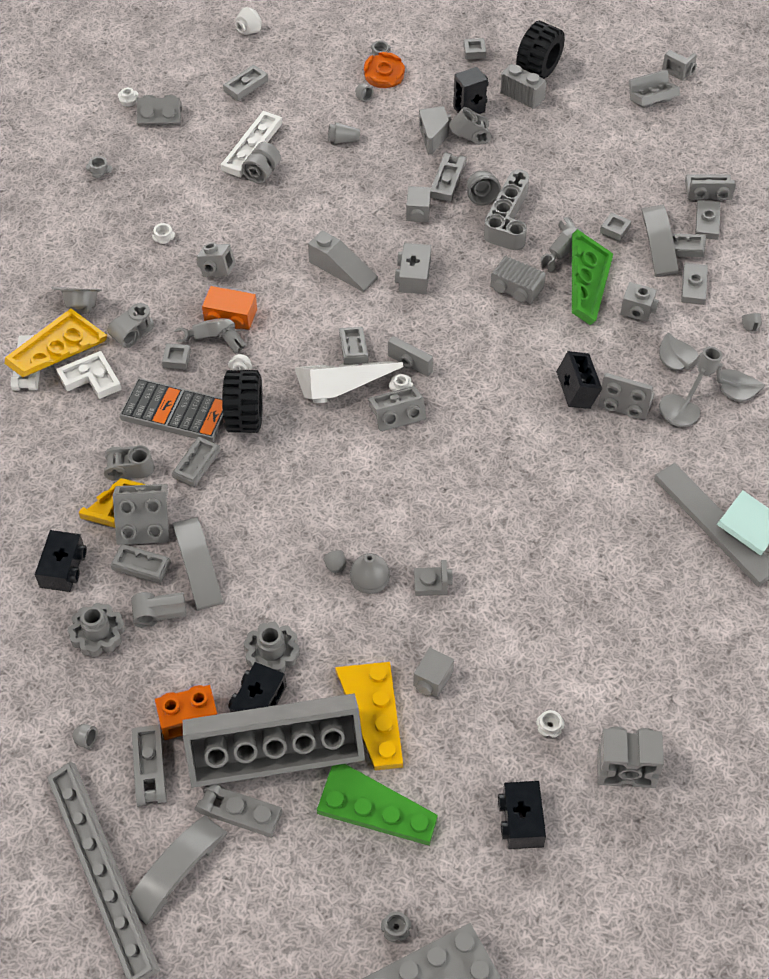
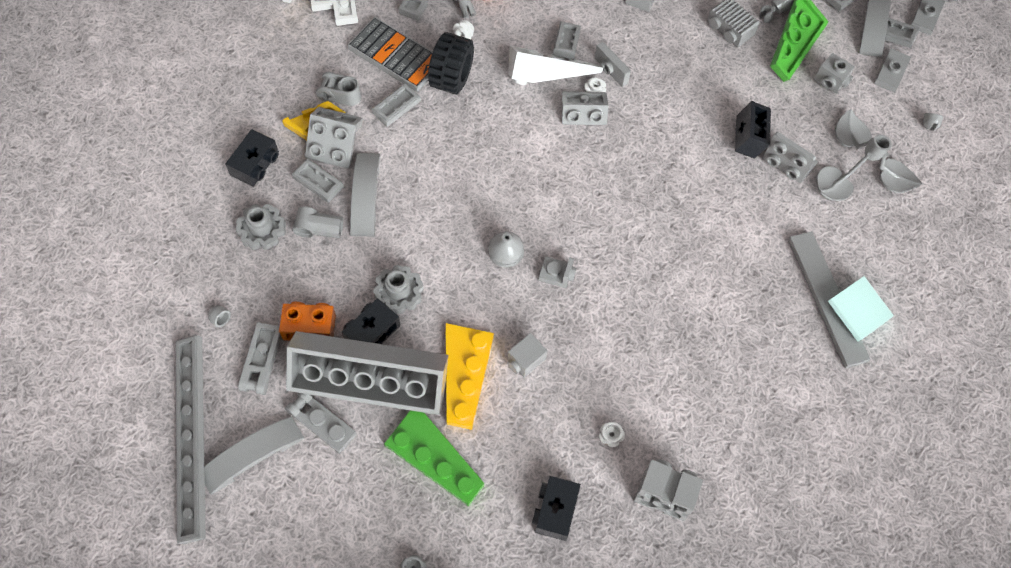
camera: 15 degrees right, 10 degrees up
(335, 561) = (480, 229): light grey hinge -> none

